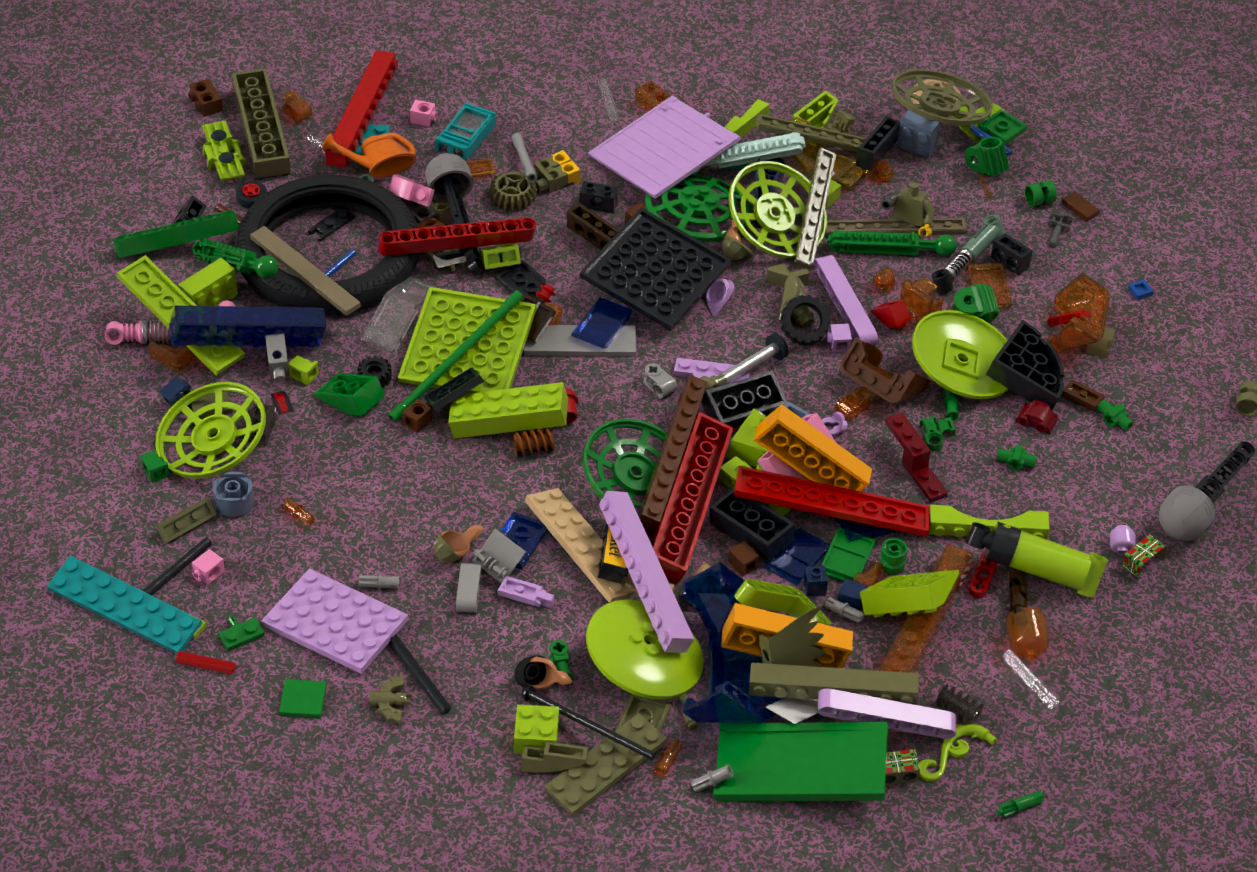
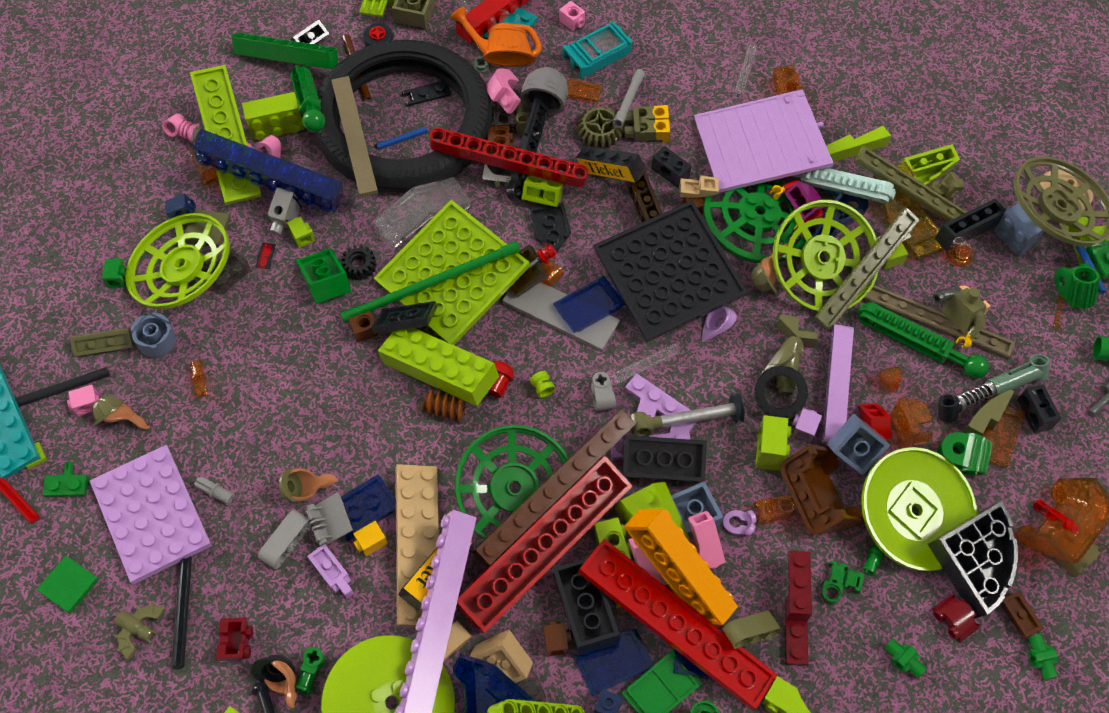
camera: 30 degrees right, 15 degrees up
(242, 559) = (113, 409): none -> piece
(481, 668) = (234, 639): none -> dark red cylinder
(541, 557) = (369, 539): none -> yellow brick
(552, 207) = (612, 163): none -> black brick
(603, 395) = (542, 384): none -> lime wheel
(640, 198) = (703, 187): none -> tan slope
(680, 347) = (645, 363): none -> clear axle
(725, 173) = (800, 194): none -> magenta torso
(822, 357) = (772, 443): none -> lime brick
(890, 328) = (858, 444): none -> sand blue brick
(891, 483) = (751, 629): none -> olive beam
(977, 269) = (989, 414): none -> olive slope

